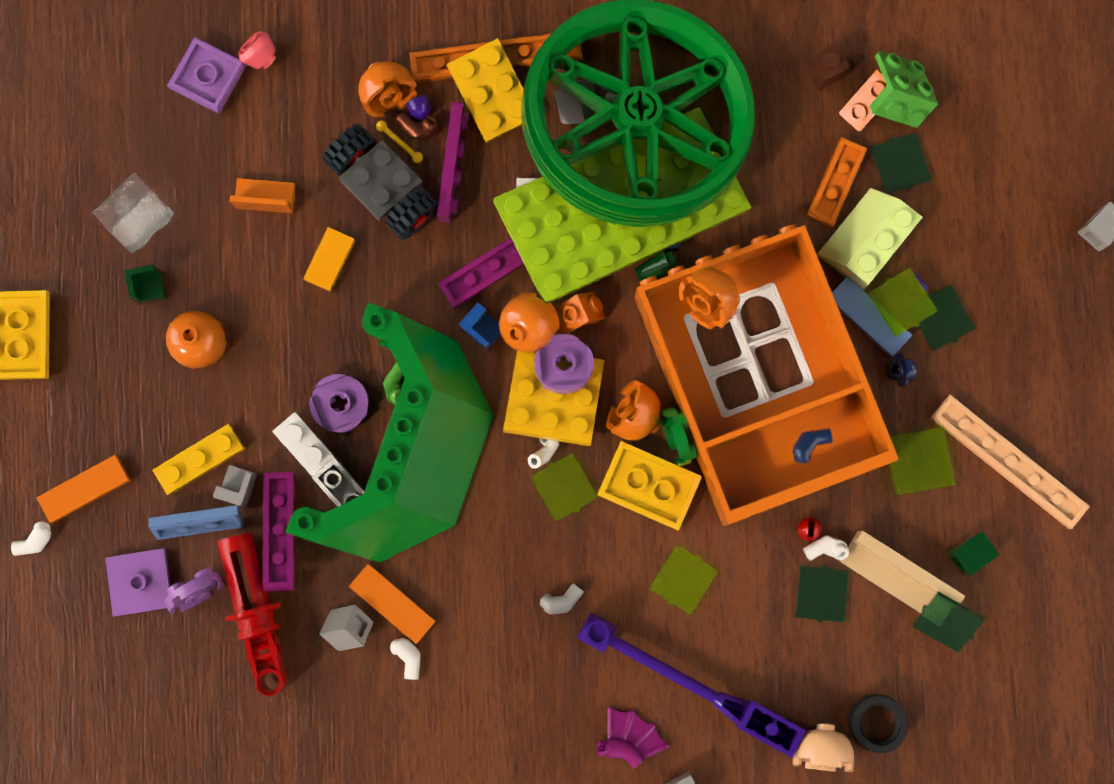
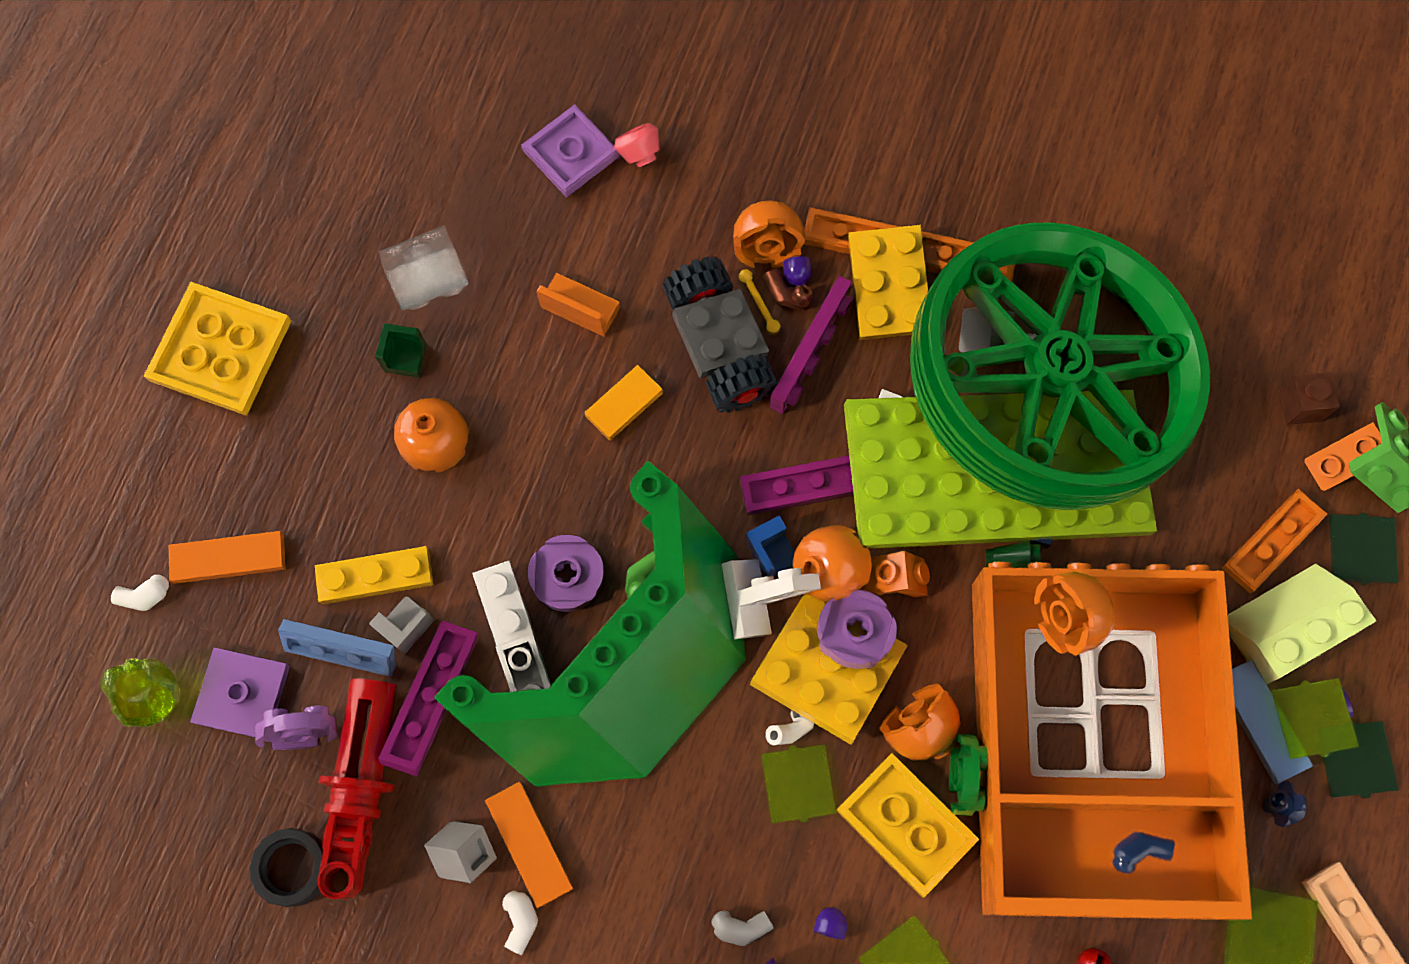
camera: 25 degrees right, 10 degrees down
(68, 610) = (141, 692): none -> clear neon green hair
(210, 696) = (261, 858): none -> black tyre
(478, 366) = (750, 593): none -> white bracket
(622, 572) = (831, 923): none -> dark purple hinge

